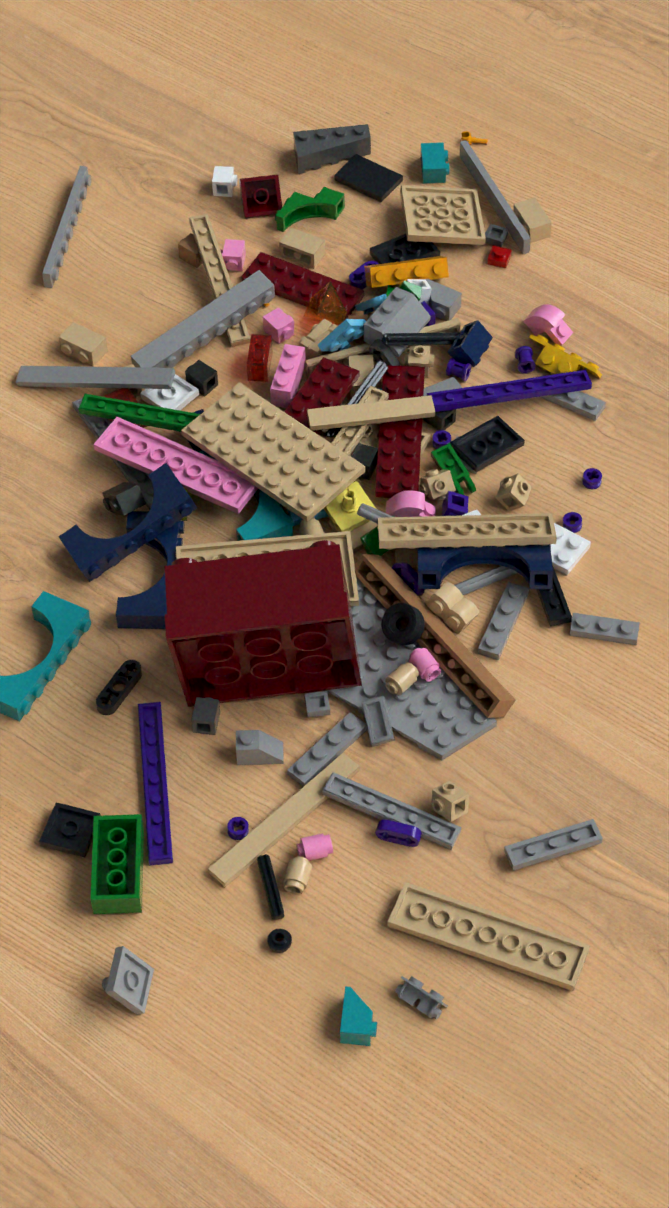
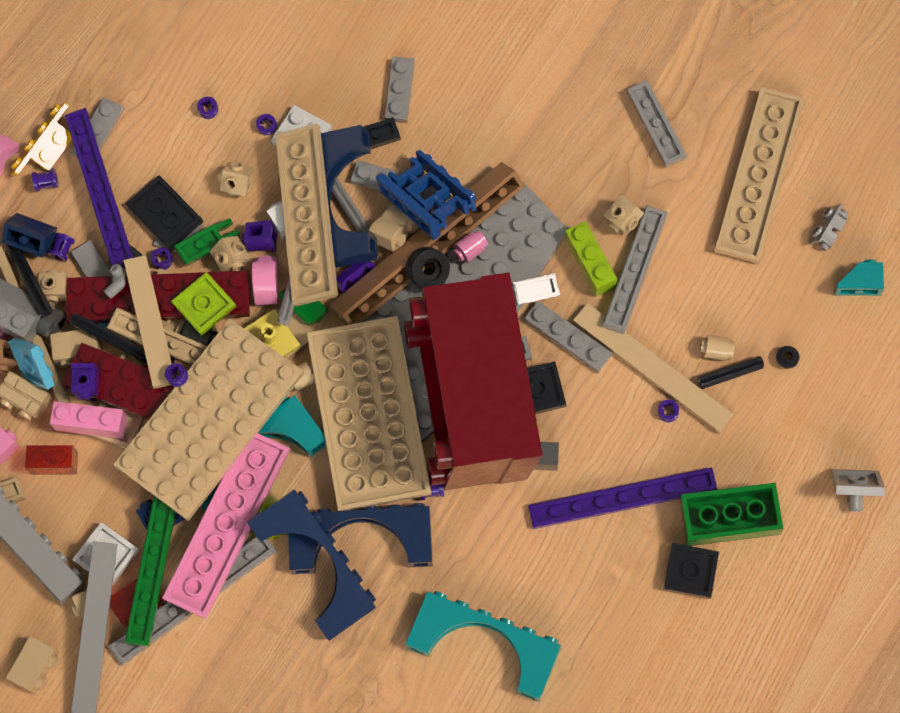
camera: 90 degrees left, 20 degrees up
(118, 697) = (511, 541): black beam -> none
(123, 498) = (272, 577): pearl dark grey brick -> none
(202, 377) = (81, 522): pearl dark grey brick -> none
(258, 748) = (578, 401): light grey slope -> none
(276, 716) = (546, 387): none -> black plate
(313, 422) = (174, 368): none -> dark purple bush
(315, 846) = (685, 334): bright pink brick -> none
(318, 365) = (90, 387): none -> dark purple brick
(386, 455) = (203, 303): none -> lime tile
(398, 833) = (660, 260): dark purple beam -> none
(401, 678) = (489, 264): tan brick -> none
(405, 391) = (118, 281): none -> light grey arm
(405, 769) = (590, 258): none -> lime brick
(475, 610) = (416, 207): none -> blue fence

